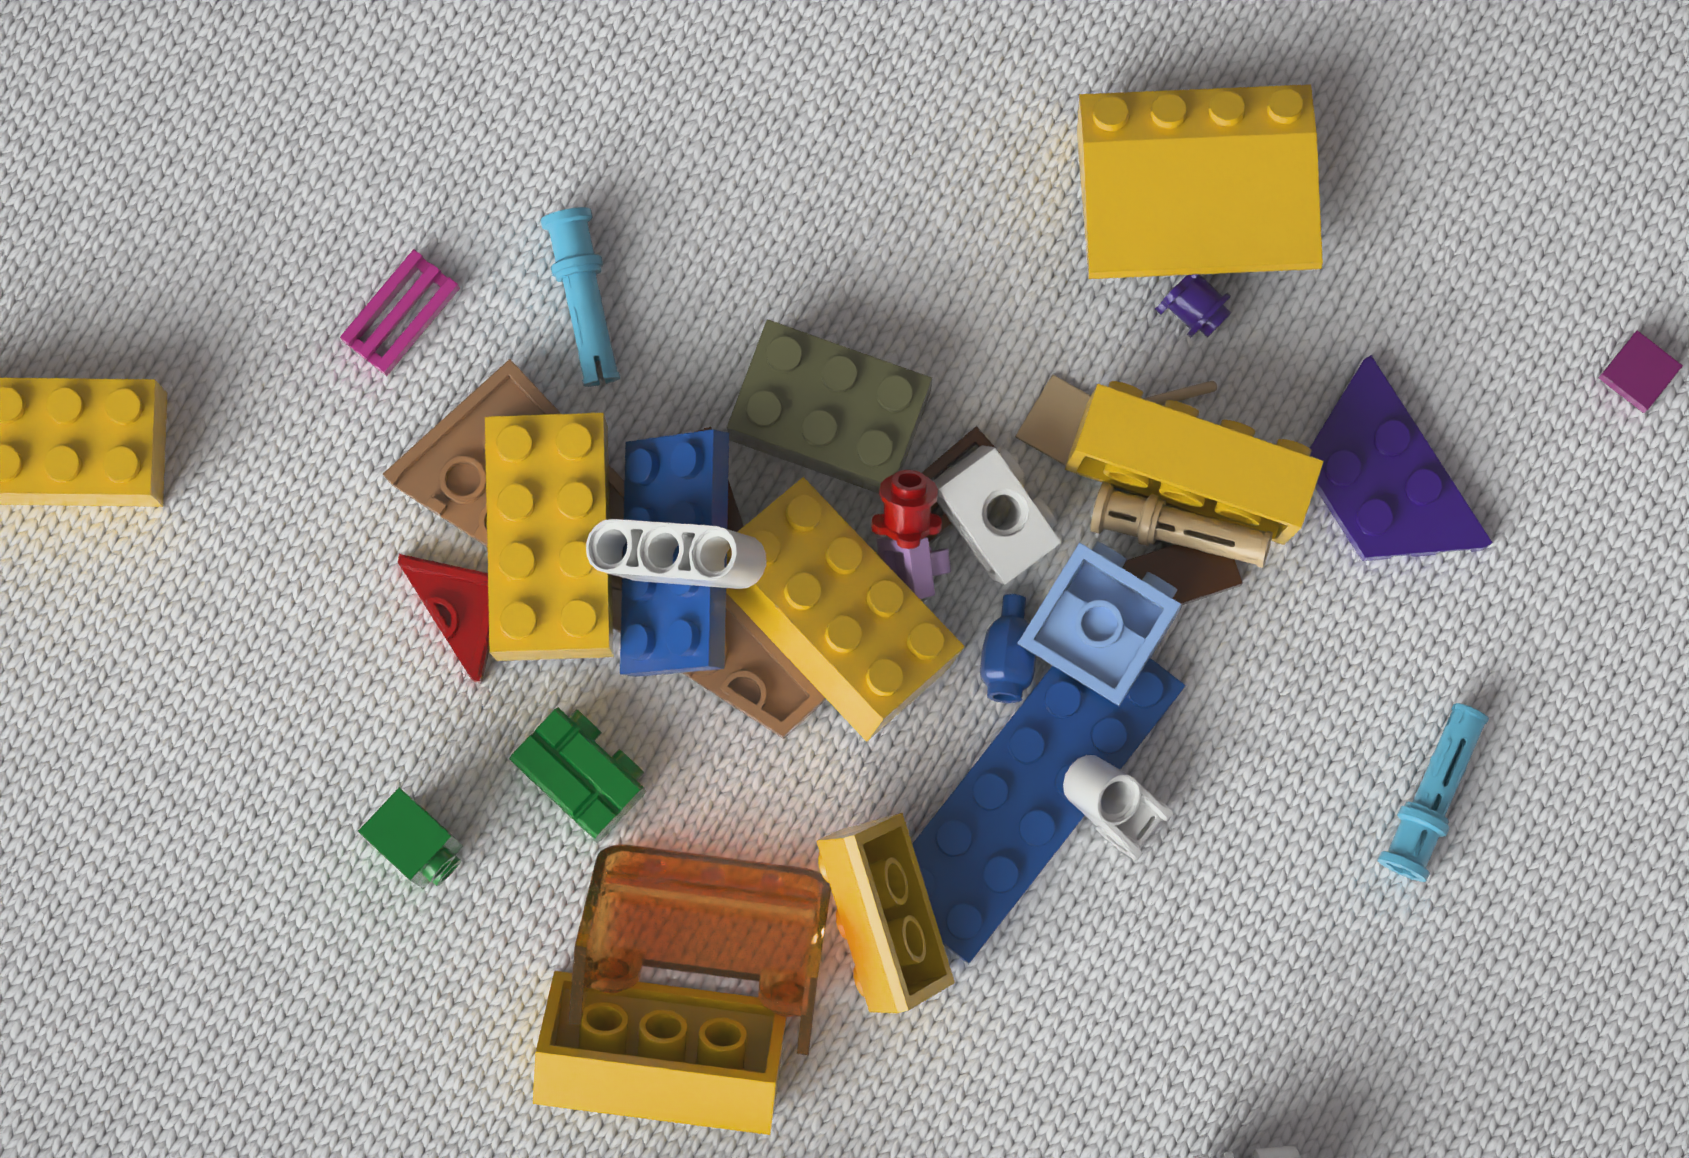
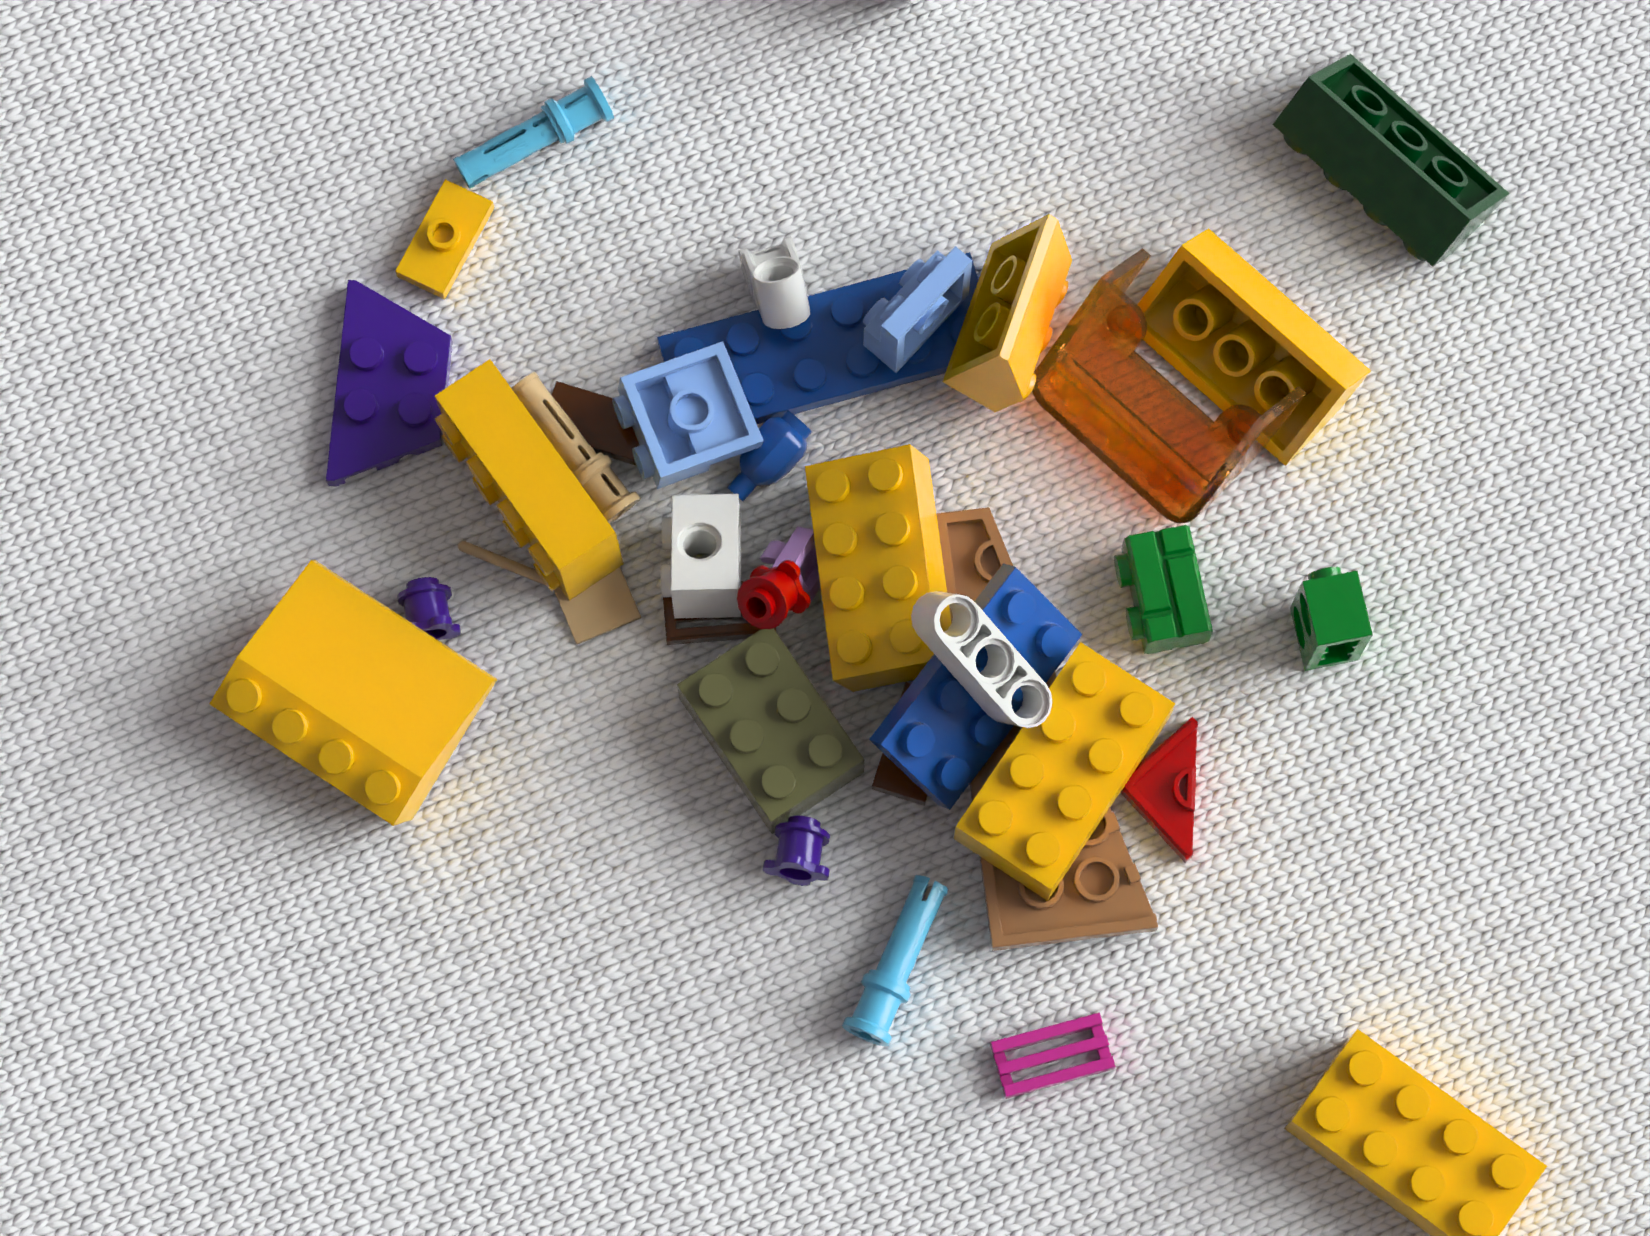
camera: 145 degrees left, 5 degrees down
(730, 325) = (799, 851): none -> dark purple brick
(971, 834) = (918, 309): none -> light blue plate
(1439, 643) = (444, 239): none -> yellow plate
(1640, 371) = (135, 328): magenta tile -> none

